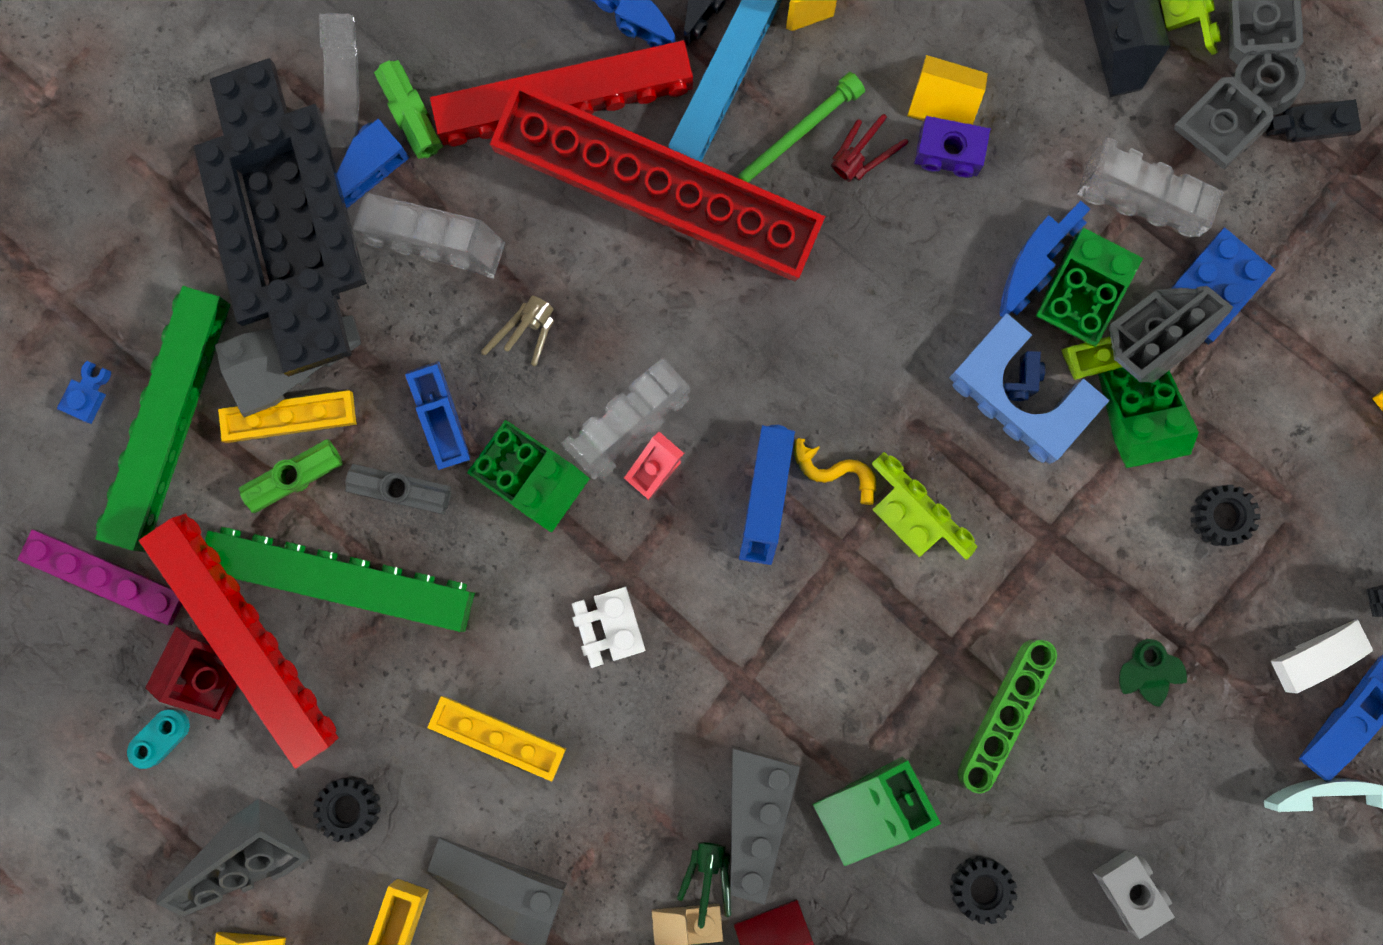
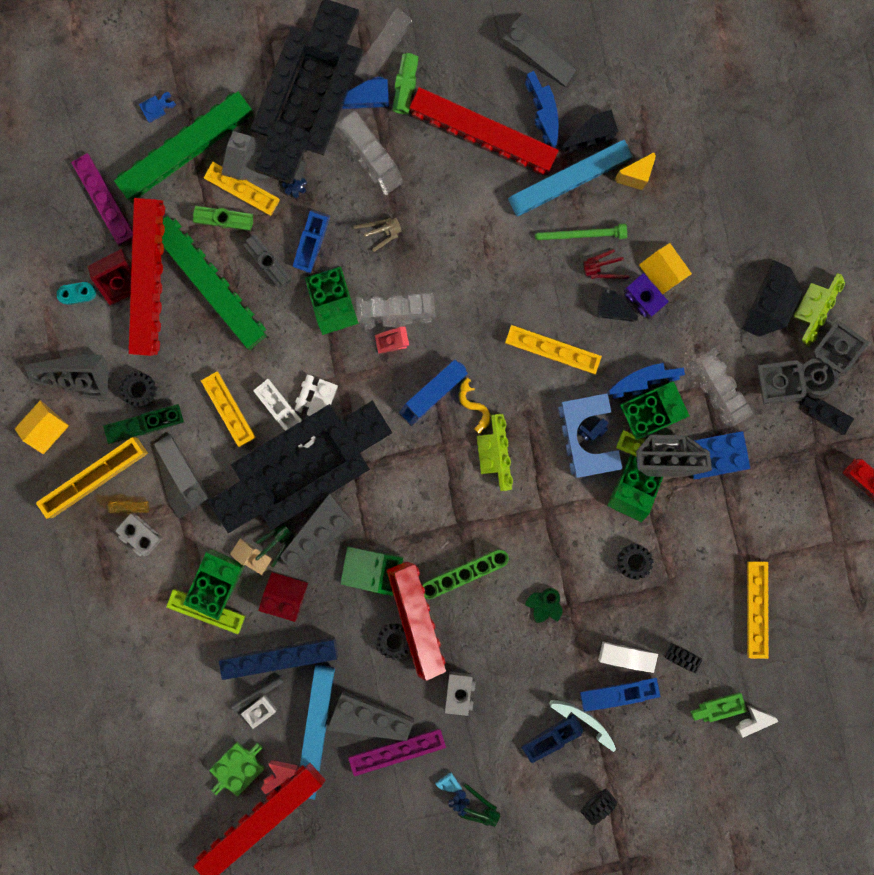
camera: 35 degrees right, 5 degrees up
(360, 360) = (295, 188): none -> dark blue plant
(390, 854) = (143, 424): none -> dark green slope
(584, 684) = (279, 407): none -> white slope
(647, 739) = (283, 468): none -> black piece
(656, 182) = (492, 209): red brick -> none
(884, 312) = (553, 349): none -> yellow plate
(923, 192) = (615, 307): none -> black slope
(996, 836) = (416, 620): none -> brick
(1314, 855) = (553, 738): none -> dark blue slope

